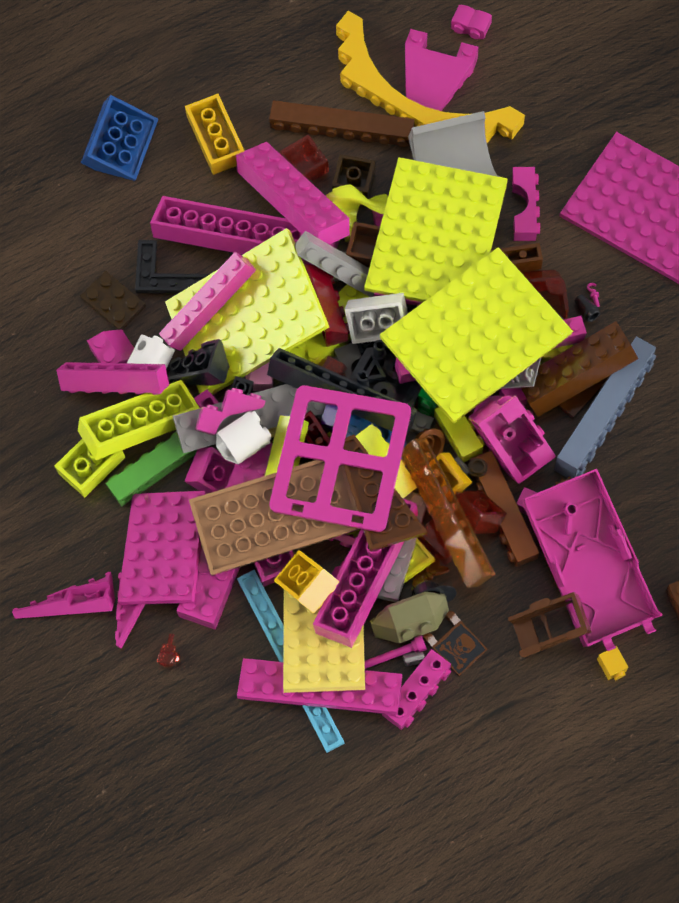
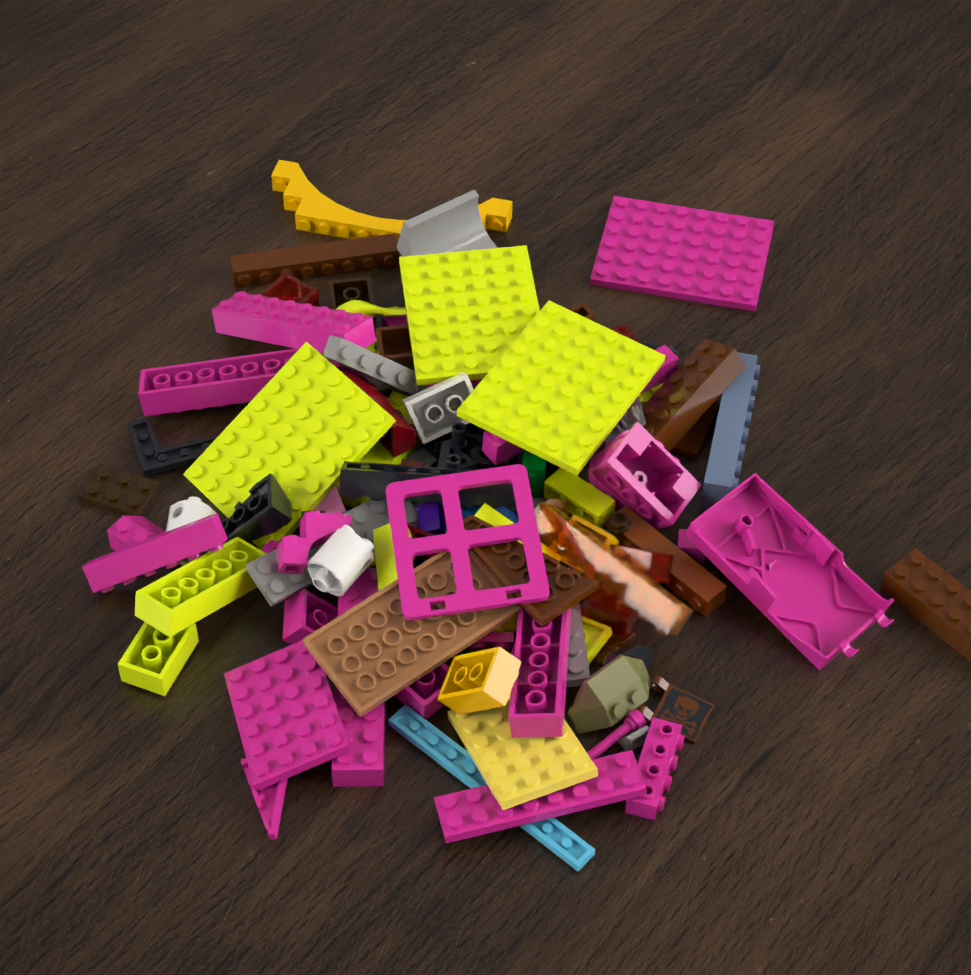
camera: 25 degrees left, 20 degrees down
(86, 598) = (208, 799): dark pink wedge -> none
(119, 139) = (65, 337): blue slope -> none
(148, 470) = (234, 641): bright green brick -> none
(167, 654) = (337, 827): clear red piece -> none
(207, 301) = (240, 444): dark pink brick -> none
(214, 133) = (176, 302): yellow brick -> none
(433, 75) = (396, 192): dark pink wedge -> none
(471, 22) = (415, 141): dark pink brick -> none
(525, 224) = (545, 267): dark pink arch -> none
(526, 631) = (751, 674): reddish brown piece -> none
(594, 295) = (661, 339): dark pink hand -> none
(613, 664) = (861, 672): yellow brick -> none

